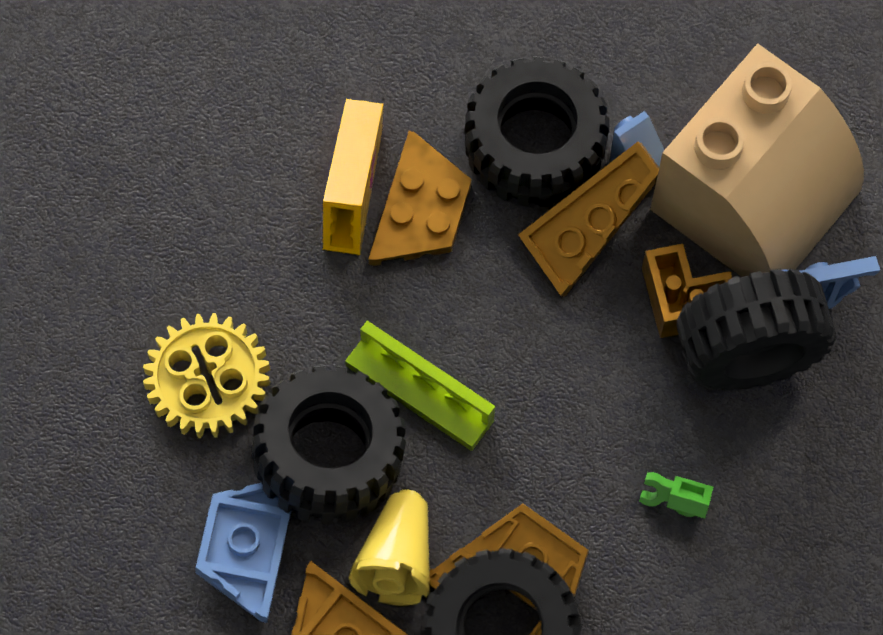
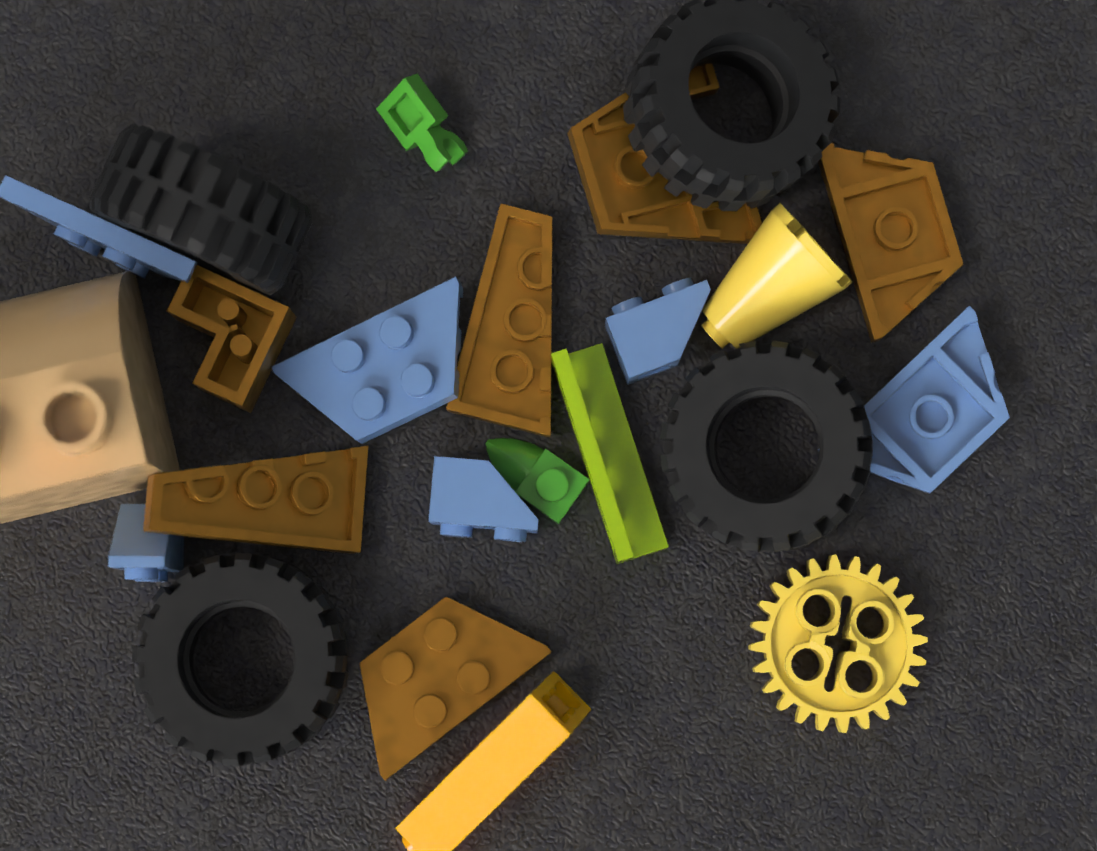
camera: 140 degrees left, 15 degrees up
(444, 472) = (655, 333): none -> medium blue slope
(453, 350) = (537, 476): none -> bright green plate
(475, 309) = (476, 496): none -> medium blue slope
(532, 417) = (510, 327): none -> pearl gold wing
(586, 340) = (384, 366): none -> medium blue wing

